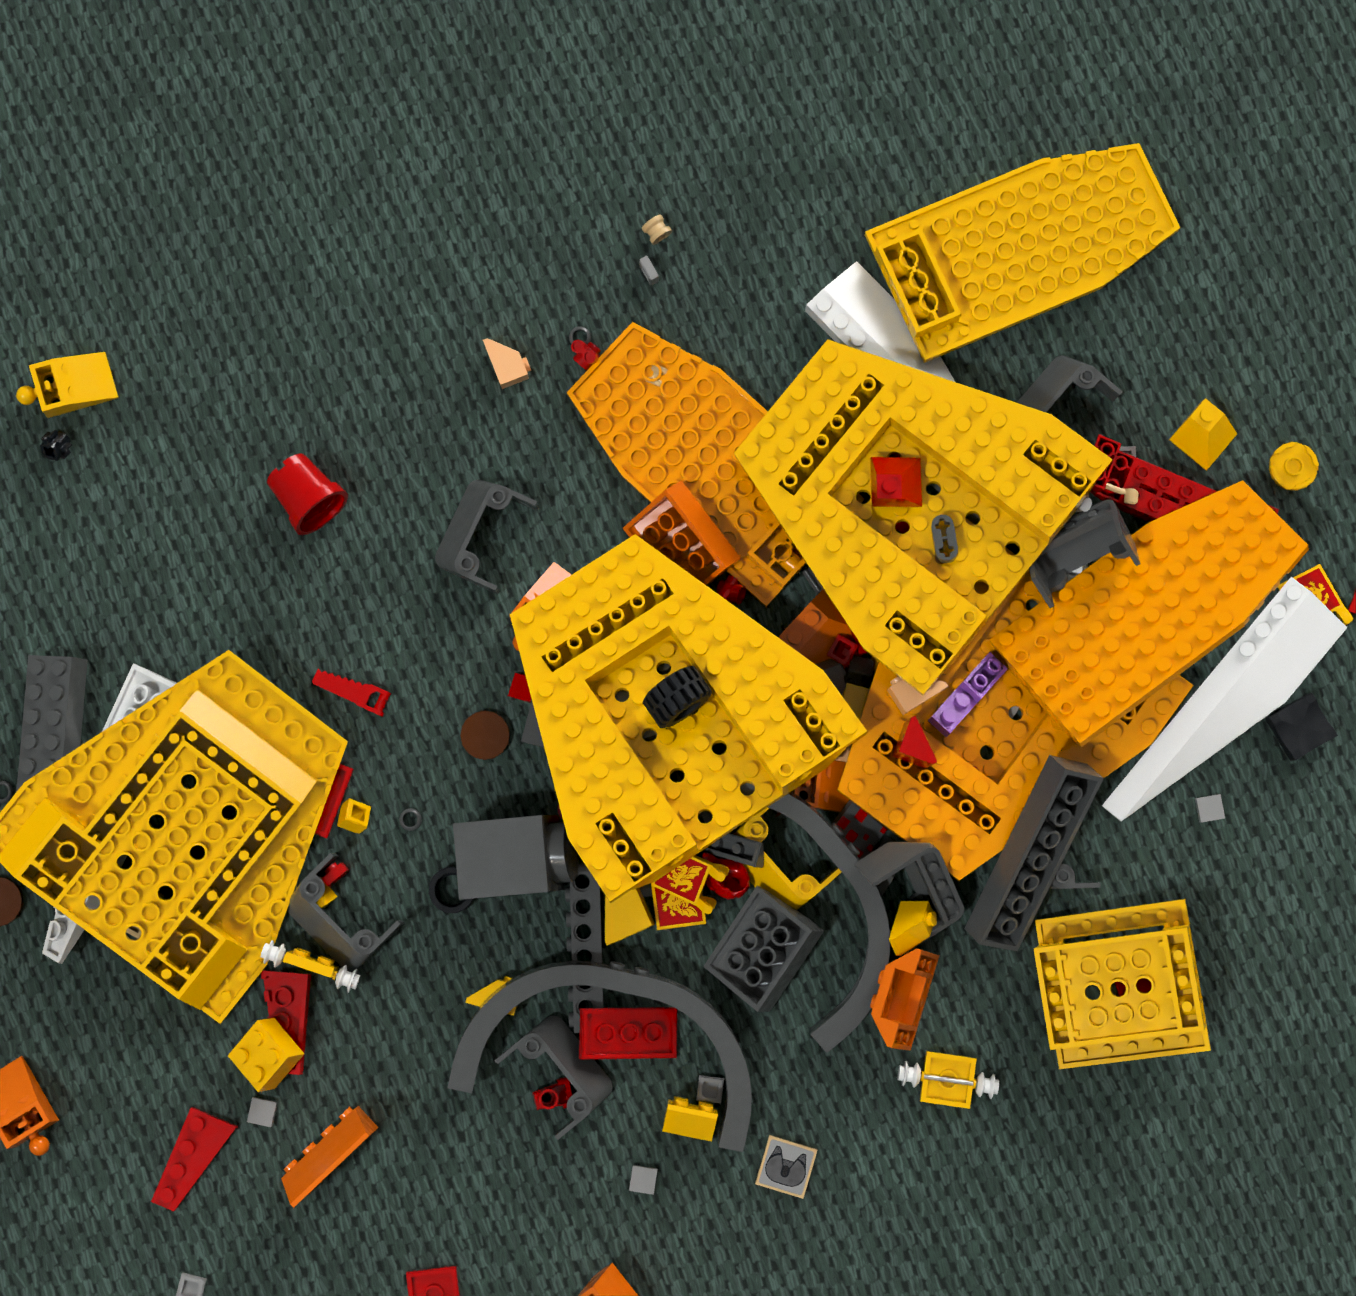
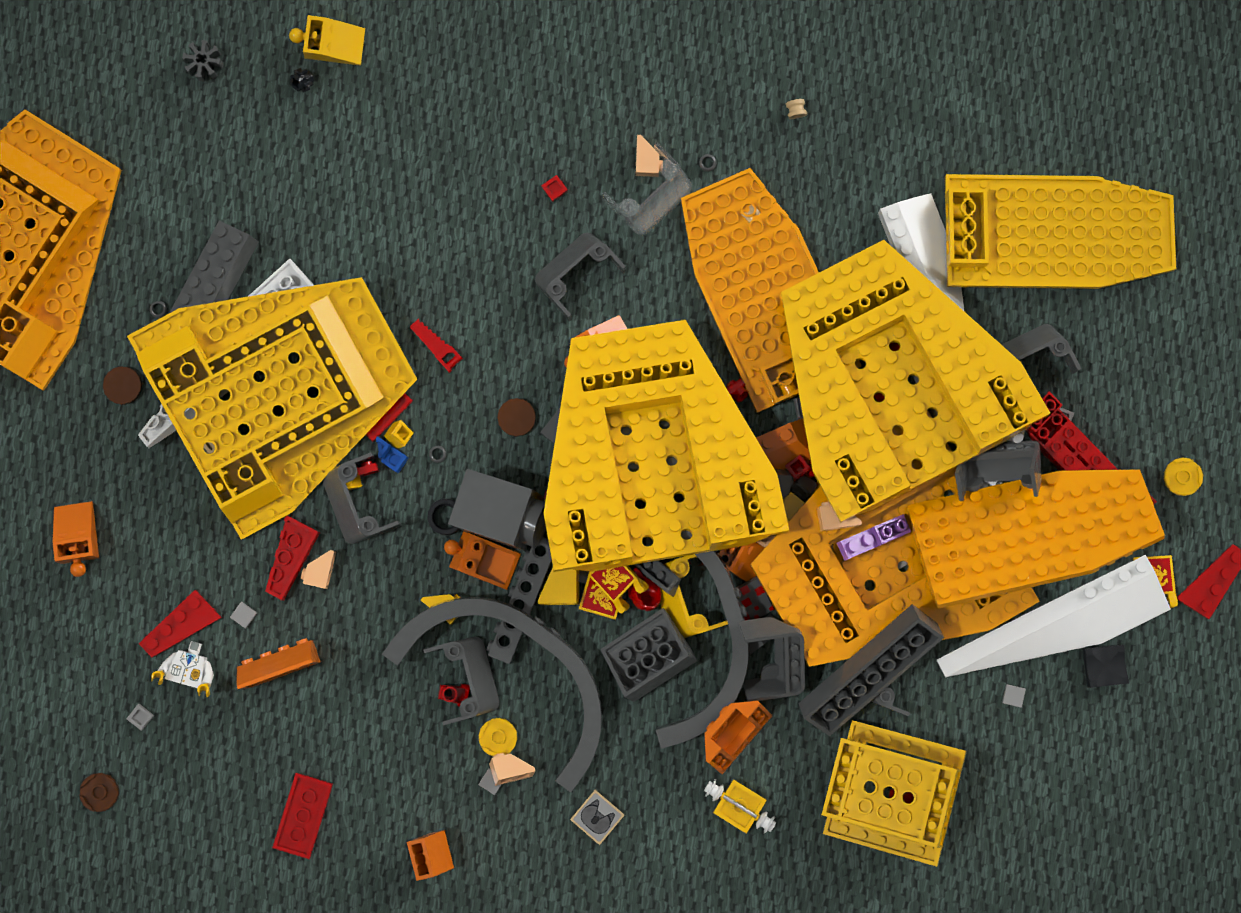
camera: 25 degrees right, 0 degrees up
(222, 1207) = (187, 669): none -> white torso
(265, 1054) = (264, 575): yellow brick -> none
(306, 494) = (464, 191): red piece -> none
(321, 965) = (319, 519): plate -> none
(330, 1020) = (319, 571): none -> light nougat slope
(355, 846) = (390, 456): none -> blue slope
(412, 445) = (554, 188): none -> red plate
(518, 921) = (482, 559): none -> orange slope
(519, 688) = (555, 395): red slope -> none
(544, 411) = (660, 203): none -> clear windscreen
(586, 353) = (706, 177): red plate -> none
(628, 1033) = (526, 672): red tile -> none
(631, 1116) = (503, 737): none -> yellow tile
(648, 270) = (777, 135): light grey tile -> none
(657, 1156) = (509, 769): none -> light nougat slope
(677, 697) = (664, 447): black tyre -> none
(684, 534) = (721, 335): orange slope -> none
(690, 1119) = (543, 753): yellow slope -> none
(710, 1089) = (567, 738): light grey tile -> none
(896, 482) = (888, 362): red slope -> none
(912, 925) = (761, 684): yellow slope -> none
(913, 745) = (818, 556): red slope -> none
(950, 538) = (909, 420): dark grey beam -> none
(1130, 495) = (1053, 444): tan hand -> none
(1204, 434) = (1128, 426): yellow slope -> none

